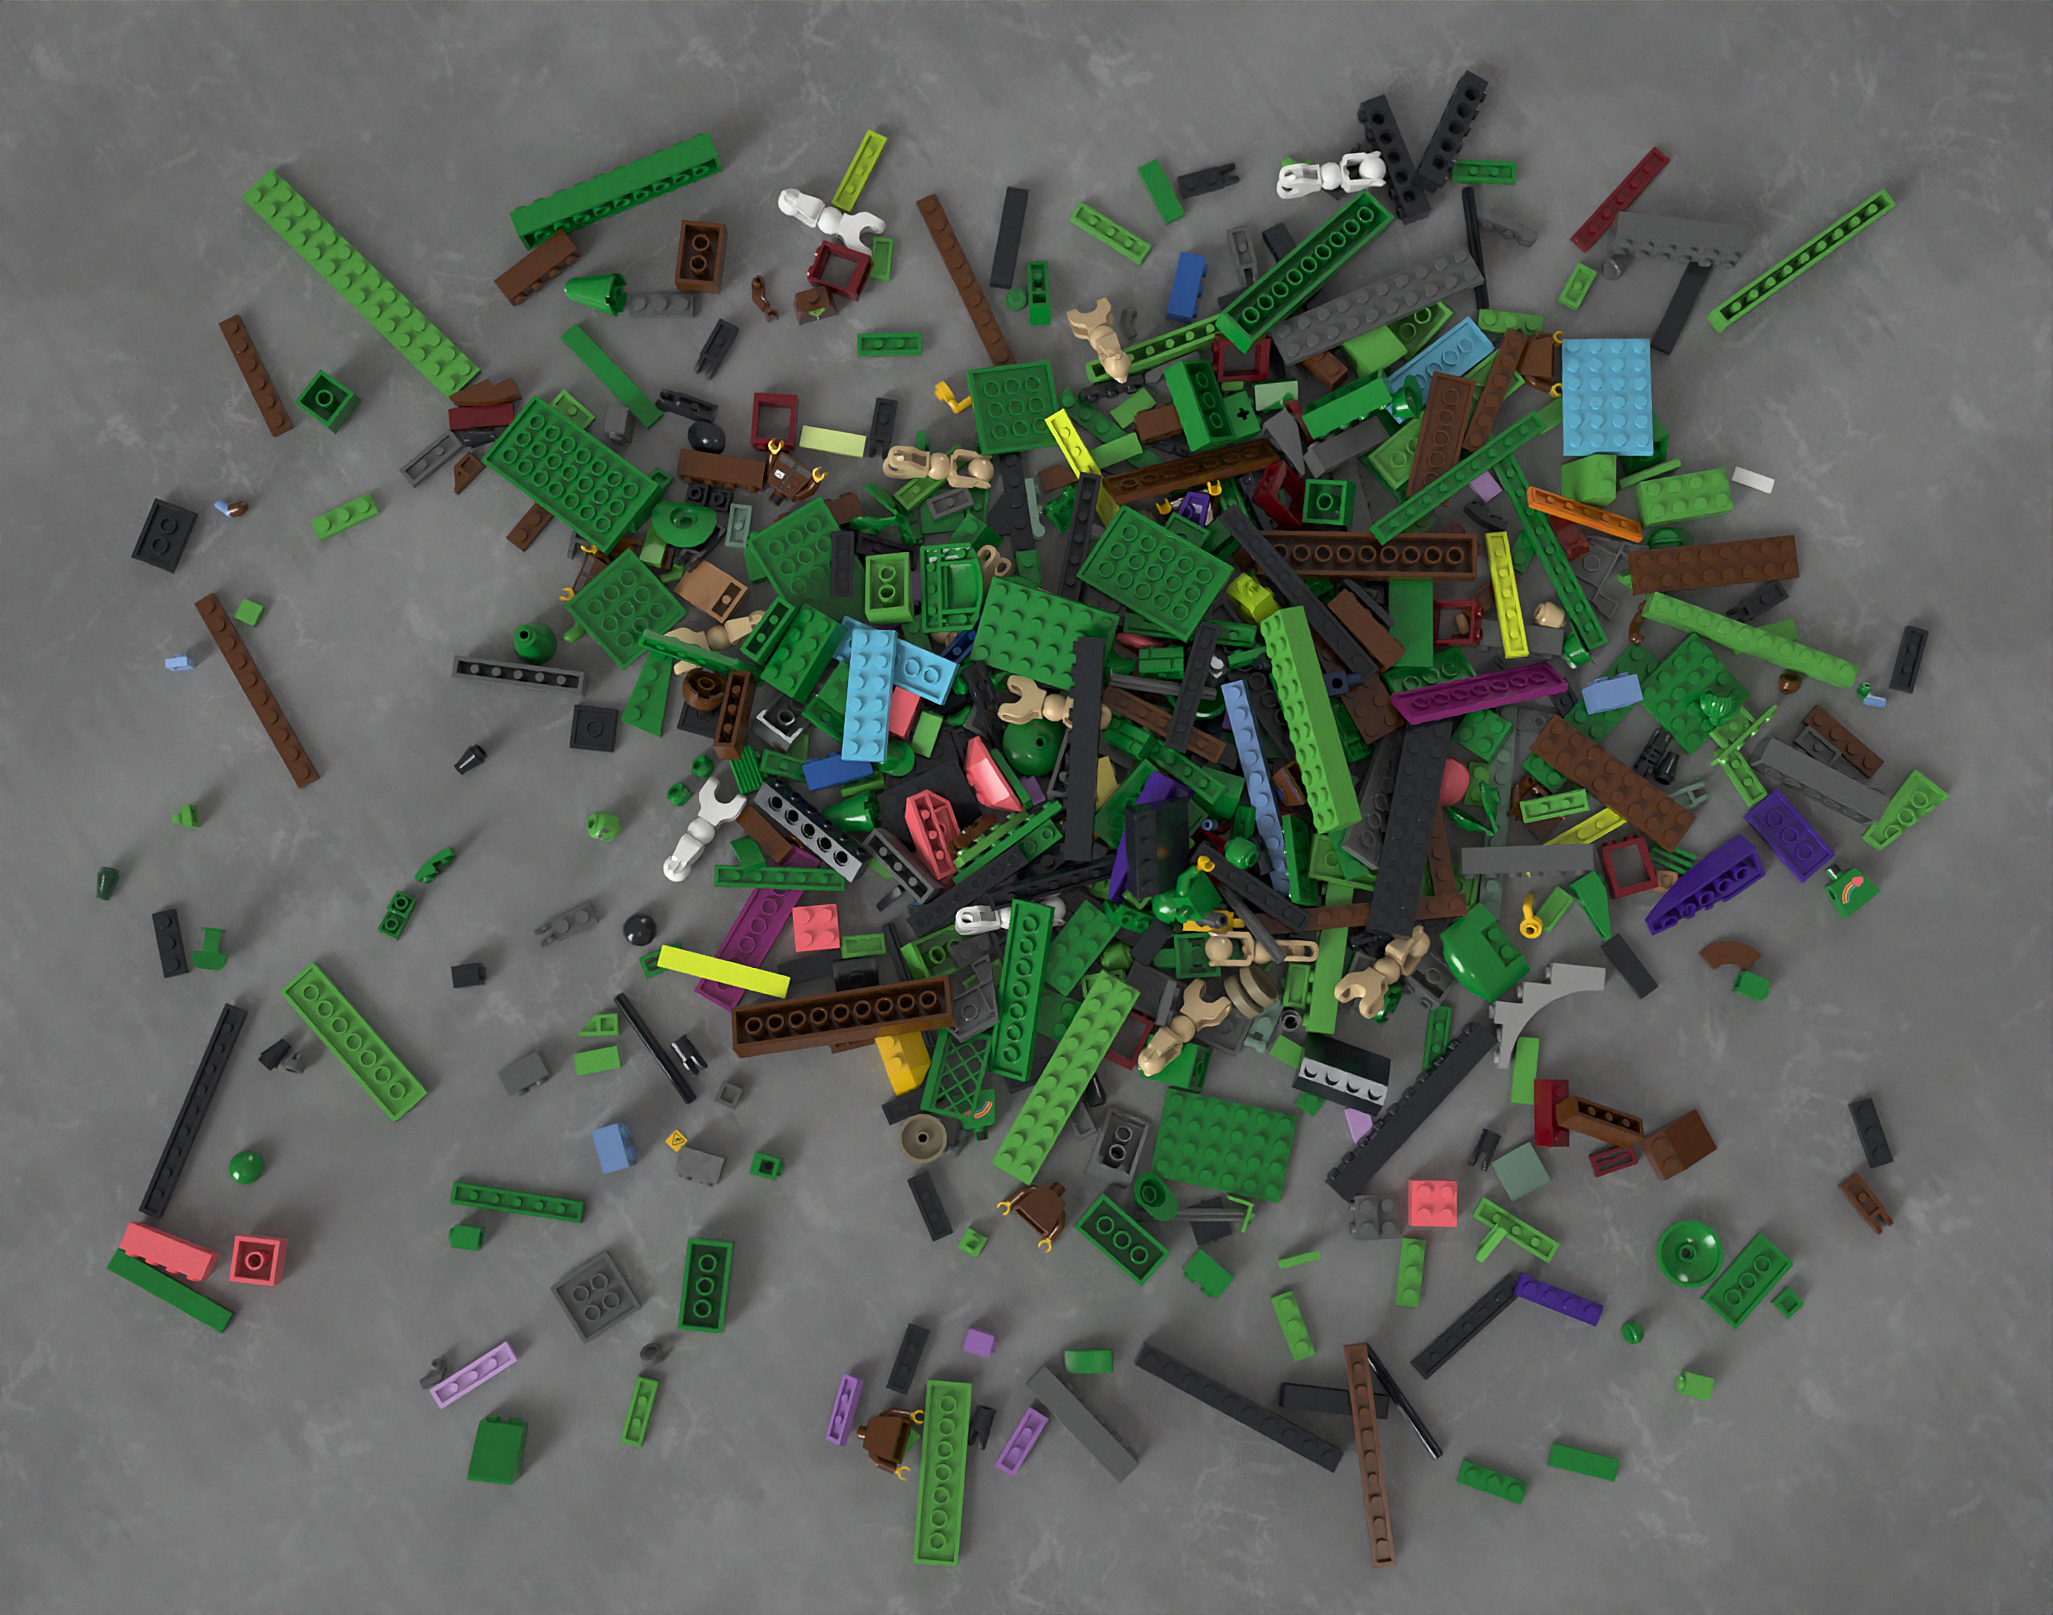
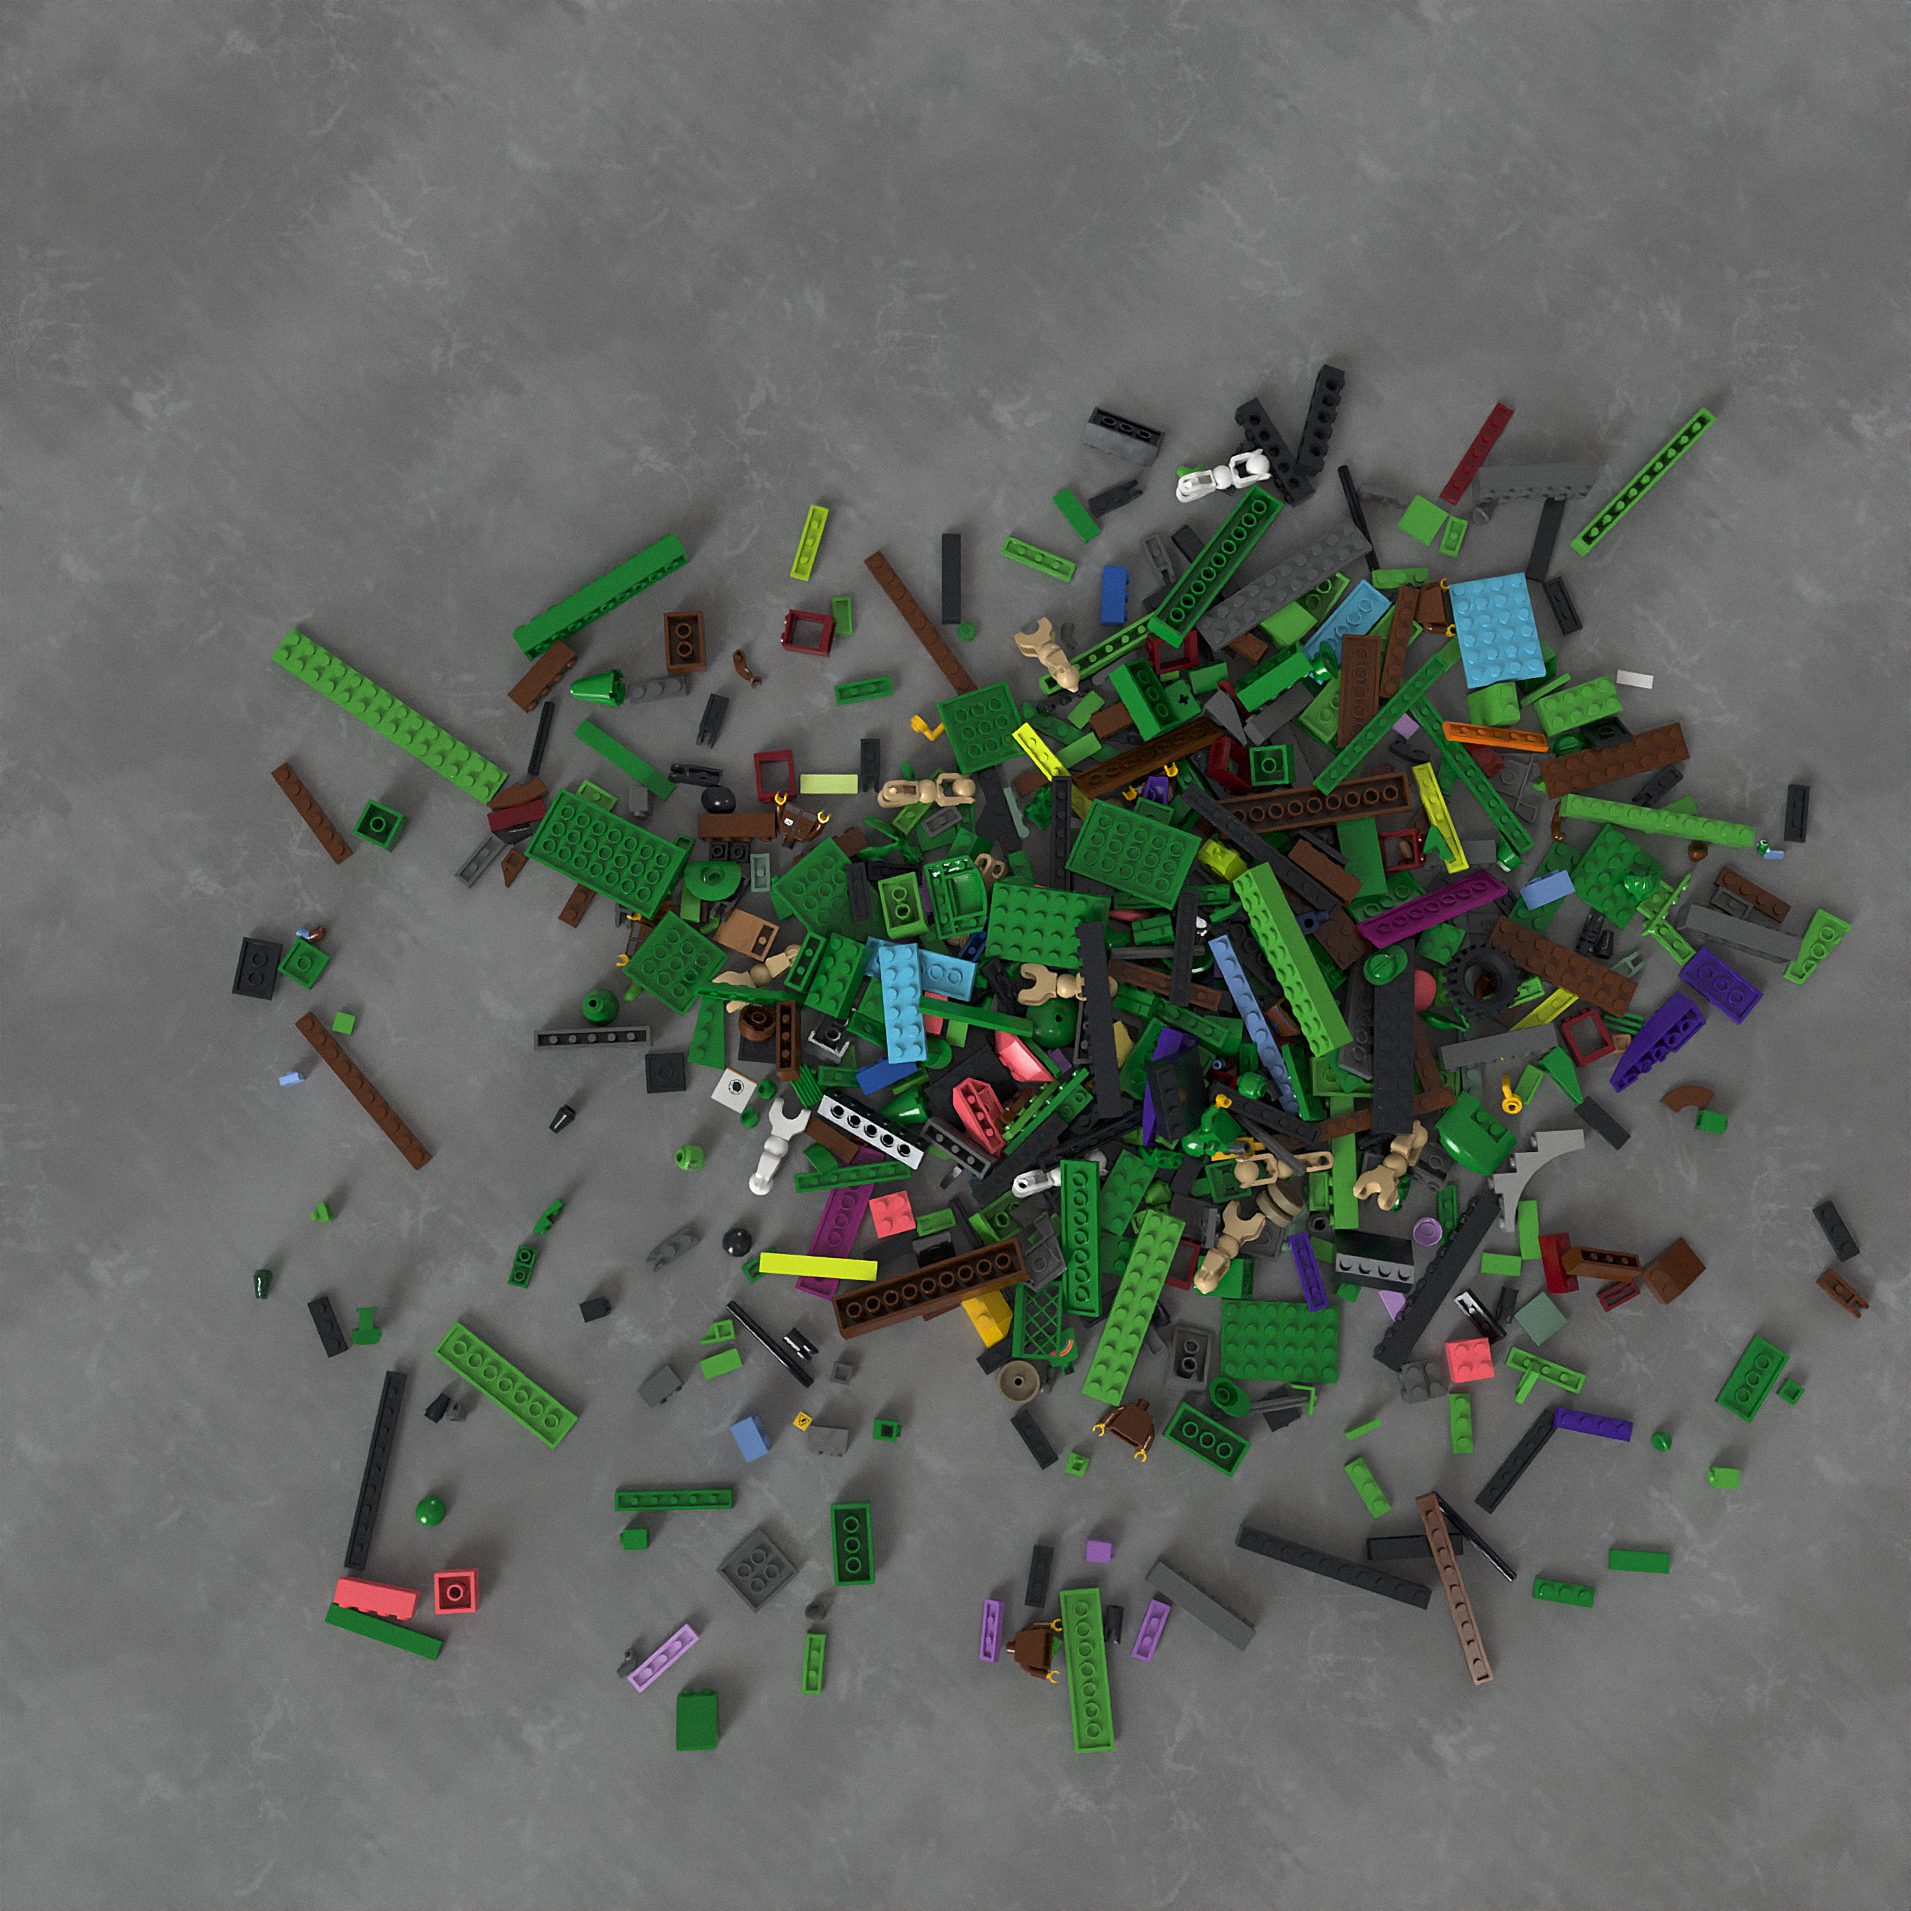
camera: 10 degrees left, 0 degrees up
(217, 539) = (304, 963): none -> green plate
(345, 517) = (413, 924): bright green plate -> none
(523, 336) = (541, 738): none -> black axle
(667, 761) = (734, 1090): none -> white sticker
(814, 305) = (791, 667): reddish brown torso -> none
(830, 219) = (792, 589): white piece -> none
(946, 722) = (975, 1016): none -> green tile
(1038, 293) = (985, 622): green slope -> none
(1089, 1361) = (1197, 1550): green slope -> none
(1208, 1273) = (1286, 1455): green brick -> none
(1228, 114) = (1122, 437): none -> black slope
(1268, 1073) = (1308, 1271): none -> dark purple plate
(1410, 1052) = (1427, 1231): none -> lavender hair
(1415, 744) = (1385, 964): none -> green piece
(1453, 1157) = (1480, 1316): none -> black plate
(1484, 172) = (1354, 450): green plate -> none
(1486, 1103) = (1500, 1264): none -> bright green tile
(1497, 618) = (1436, 841): none -> green slope
(1541, 768) = (1503, 975): none -> black tyre
(1546, 262) = (1422, 520): none -> bright green tile
(1549, 616) = (1480, 830): tan head -> none
(1686, 384) = (1562, 606): none -> black tile
(1703, 1257) = (1711, 1364): green dish -> none
(1710, 533) = (1606, 733): none -> black tile
(1848, 889) = (1780, 1023): green torso -> none

